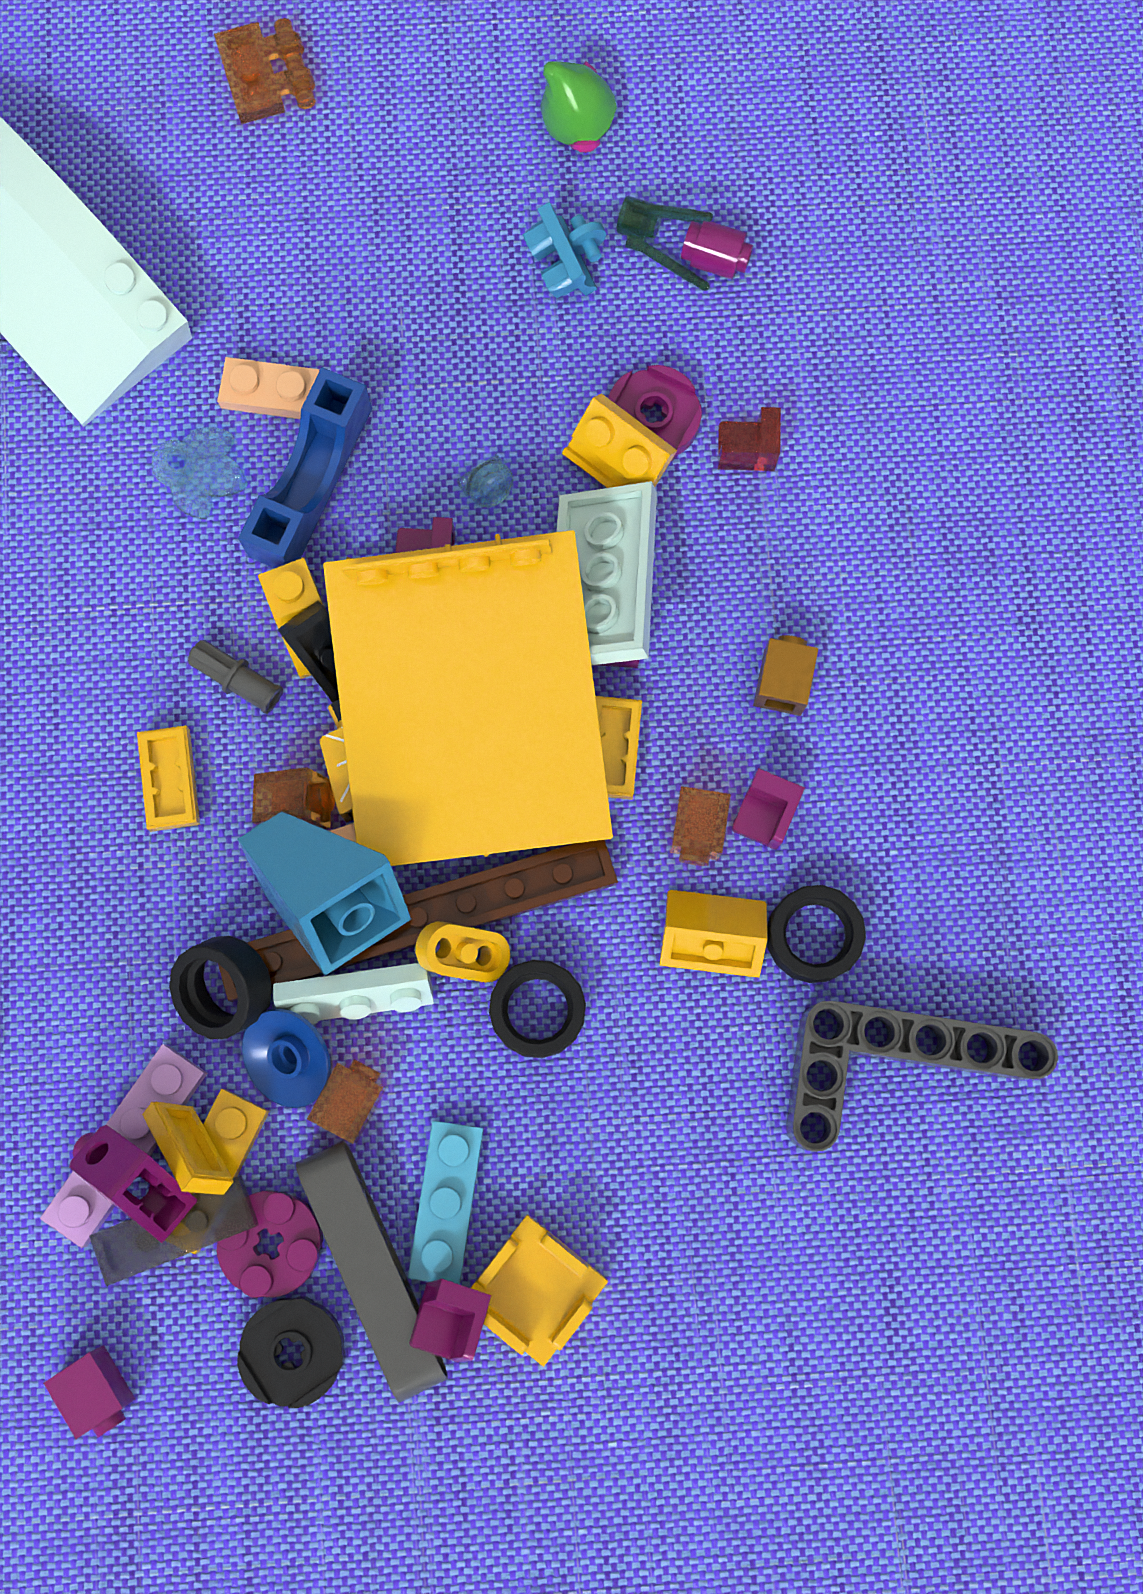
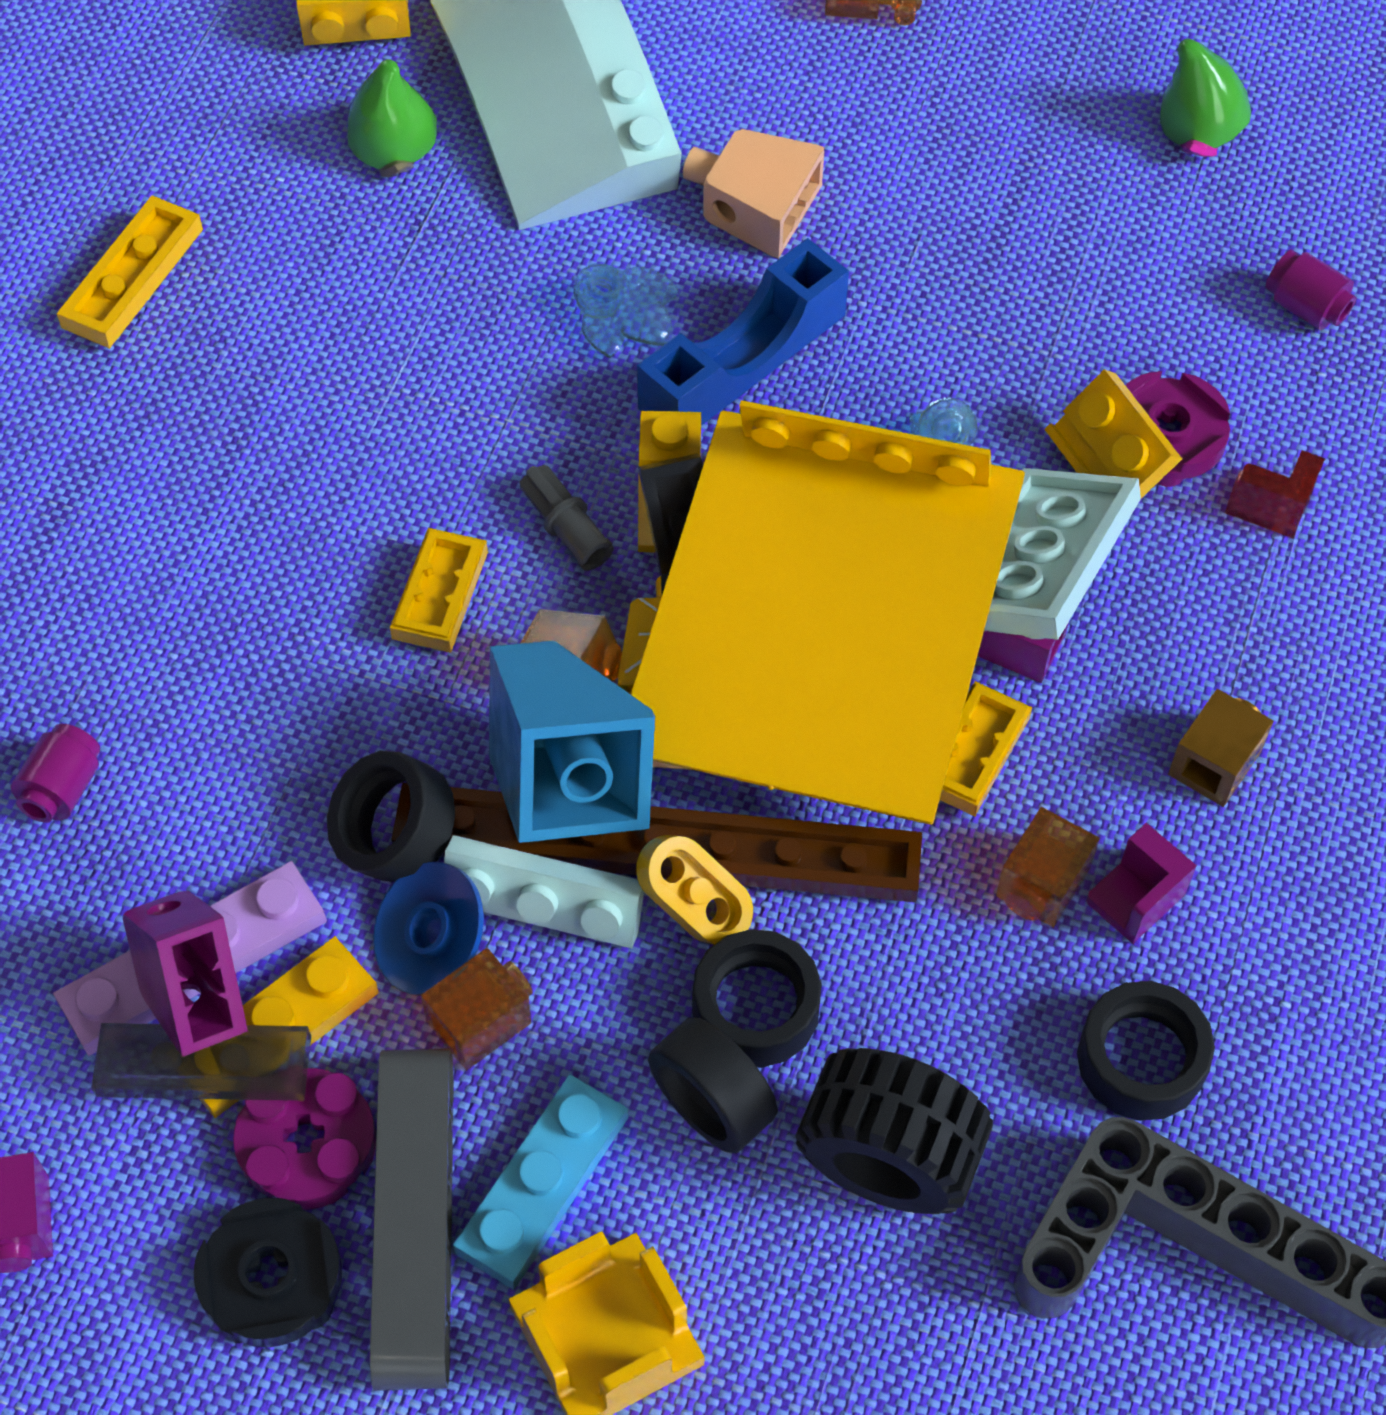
camera: 25 degrees right, 20 degrees down
(187, 1148) = (266, 967): yellow tile -> none
(256, 316) = (758, 186): none -> light nougat torso
(265, 387) = (728, 254): light nougat plate -> none
(449, 1320) = (483, 1295): magenta panel -> none
(537, 1095) = (713, 1084): none -> black tyre
(553, 235) = (1126, 216): dark azure hips -> none
(643, 219) = (1237, 234): plant -> none
(676, 1082) = (894, 1131): none -> black tyre
(714, 933) = (1012, 1003): yellow panel -> none

